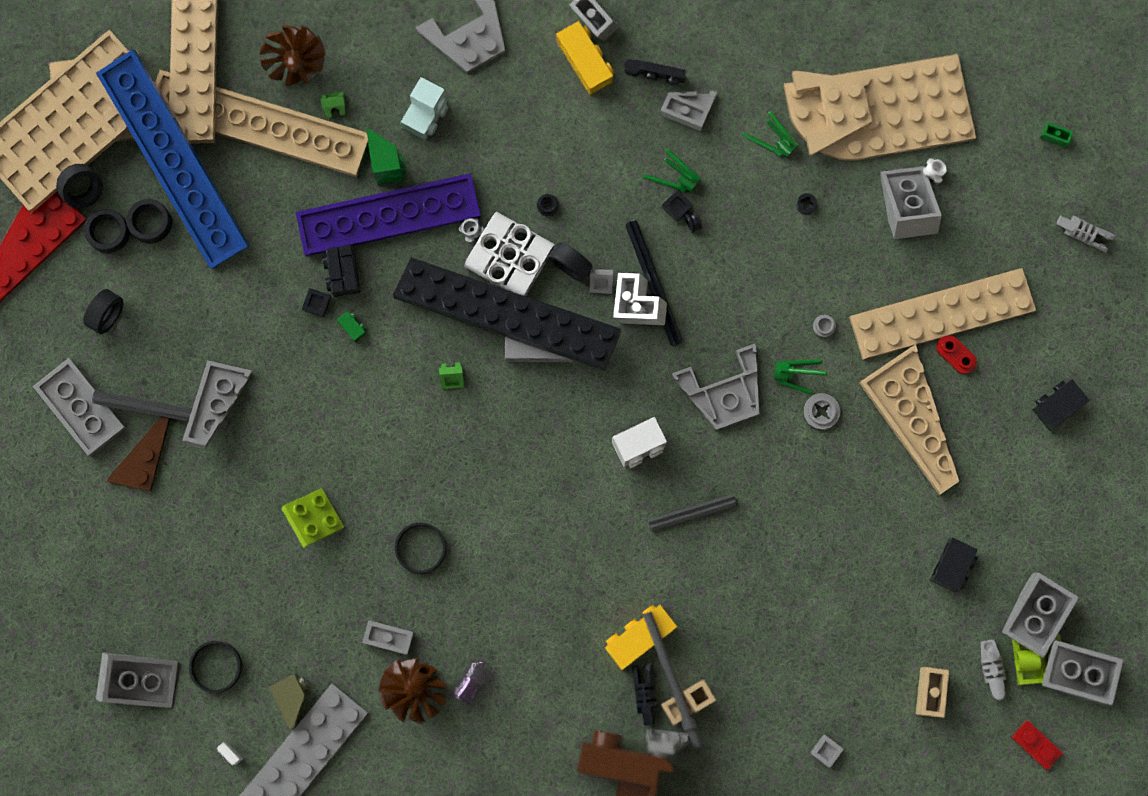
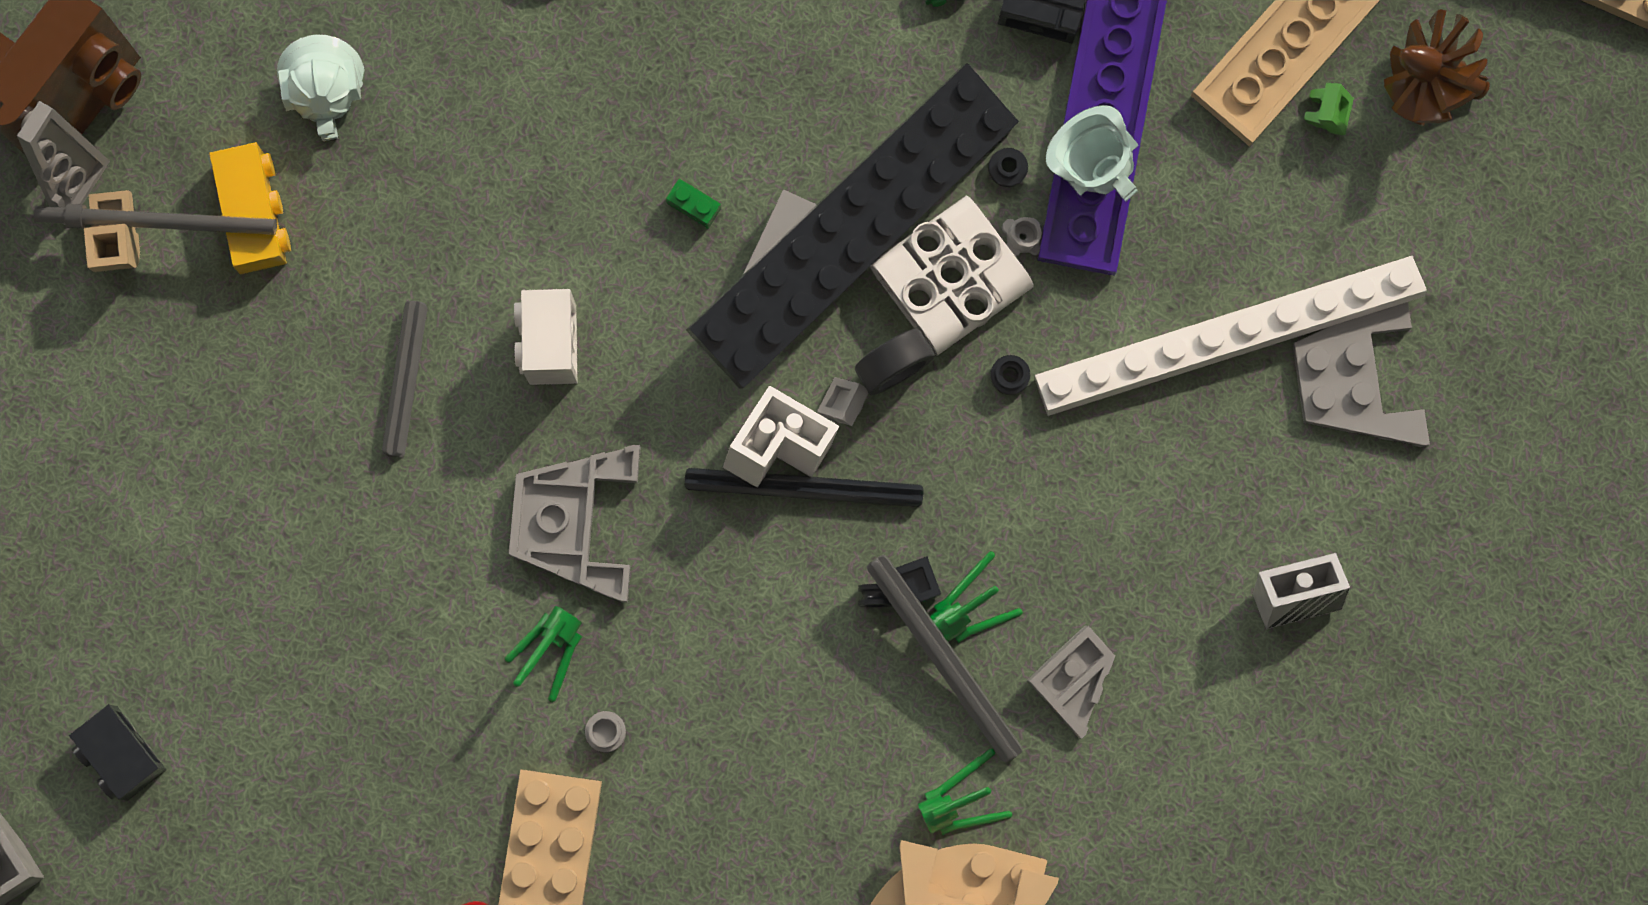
camera: 110 degrees right, 0 degrees up
(386, 162) = (1197, 140): green slope -> none
(415, 206) = (1094, 152): none -> light aqua helmet
(426, 106) = (1254, 243): light aqua brick -> none
(440, 258) = (1004, 178): none -> black plate
(451, 376) = (794, 99): bright green tile -> none
(478, 104) = (1230, 335): none -> white plate
(530, 405) = (693, 203): none -> green piece
(554, 632) = (320, 80): none -> light aqua helmet
(585, 57) = (1235, 544): yellow brick -> none
(645, 694) = (159, 178): black hinge -> none
(654, 71) = (1162, 648): black hinge -> none
(709, 173) = (944, 658): none -> dark grey axle
(813, 202) = (823, 786): black bush -> none
(832, 411) = (450, 651): light grey gear -> none
(909, 409) = (410, 804): tan wing -> none

